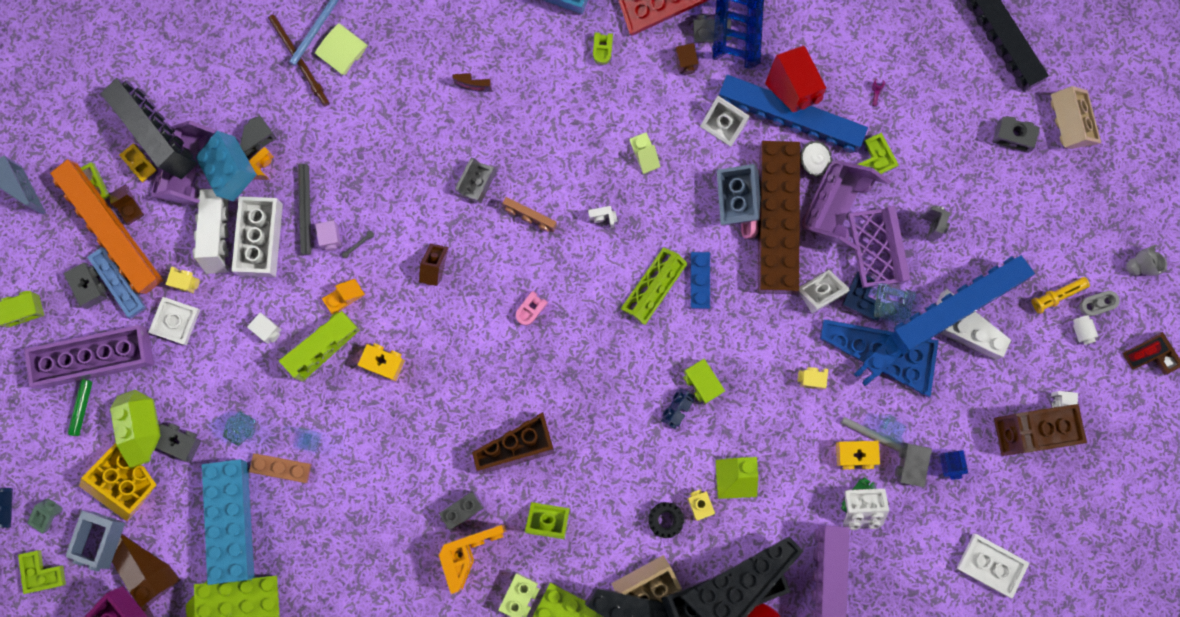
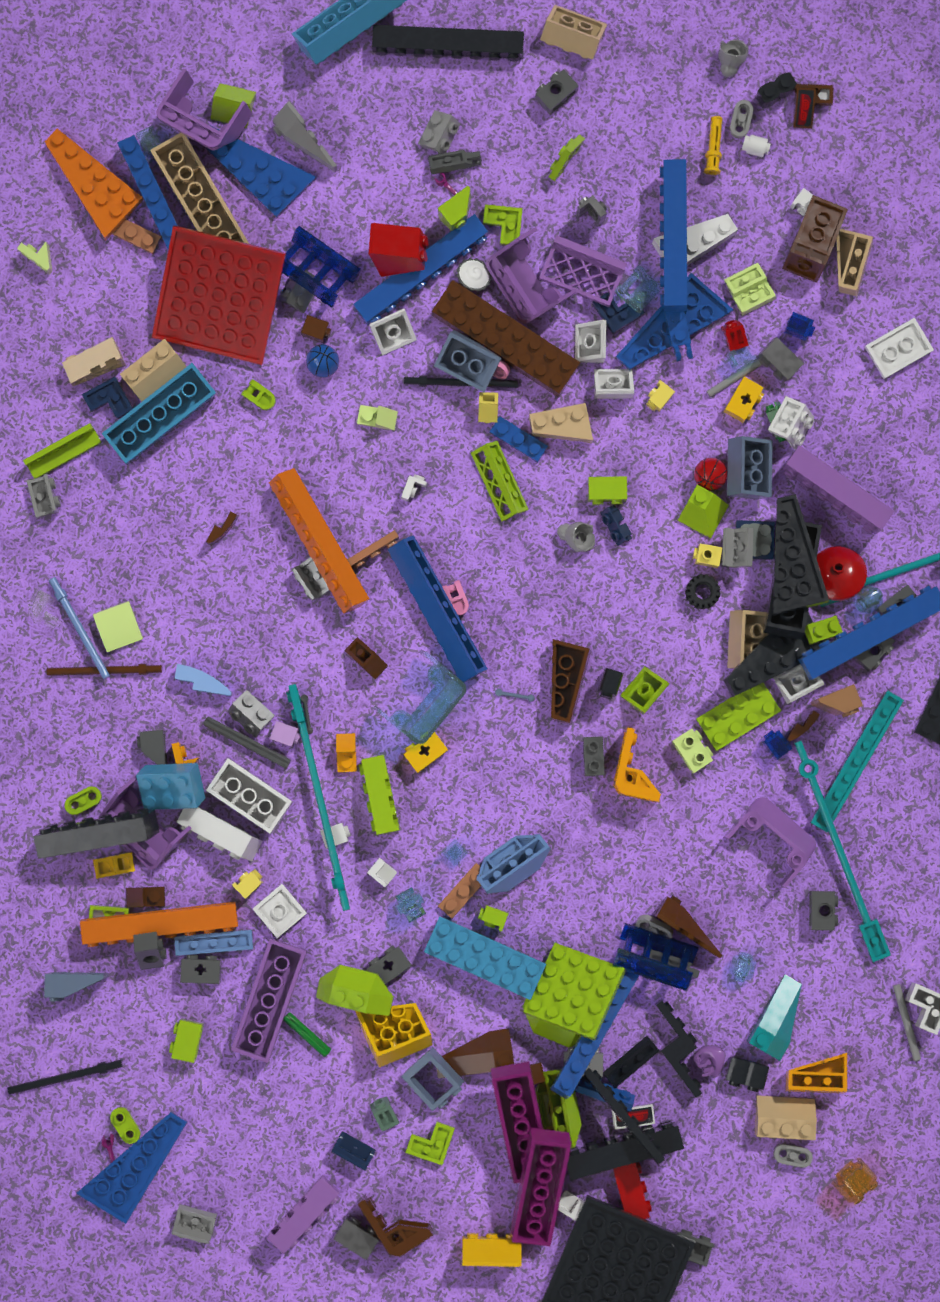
camera: 65 degrees left, 5 degrees up
(75, 231) = (149, 950): none -> dark grey brick
(180, 107) = (83, 800): none -> lime plate
(255, 387) = (382, 872): none -> white panel
(269, 507) = (493, 917): none -> lime brick
(324, 495) = (512, 863): none -> medium blue wedge
(330, 197) = (250, 713): none -> flat silver bracket
(334, 141) = (201, 681): none -> light blue slope
(349, 238) = (298, 714): none -> teal bar
(418, 346) = (435, 706): none -> clear light blue windscreen
(471, 395) = (530, 698): none -> sand blue hinge
(508, 165) = (318, 540): none -> orange brick
(510, 298) = (437, 609): none -> blue brick
(533, 486) = (610, 683): none -> black brick
(646, 371) = (569, 532): none -> light grey piece
(663, 78) = (322, 361): none -> blue piece
(700, 172) = (423, 381): none -> black bar
(710, 237) = (488, 407): none -> light yellow brick
(723, 527) = (737, 547): none -> light grey bracket
(737, 308) = (563, 423): none -> tan wedge
(740, 539) = (762, 538): none -> light grey piece
(773, 463) = (710, 474): none -> red piece
(798, 332) = (613, 383): none -> white slope
(801, 495) = (749, 468): none -> sand blue brick
(862, 108) = (456, 209): none -> lime slope
(900, 86) = (453, 161): none -> dark grey hinge
(909, 411) = (735, 335): none -> red bracket
(916, 61) = (439, 132): none -> light grey bracket
(957, 401) = (750, 289): none -> yellowish green slope
(968, 172) = (566, 153): none -> lime plate
(1045, 474) = (852, 258): none -> tan wedge
(1145, 317) = (779, 89): none -> black brick

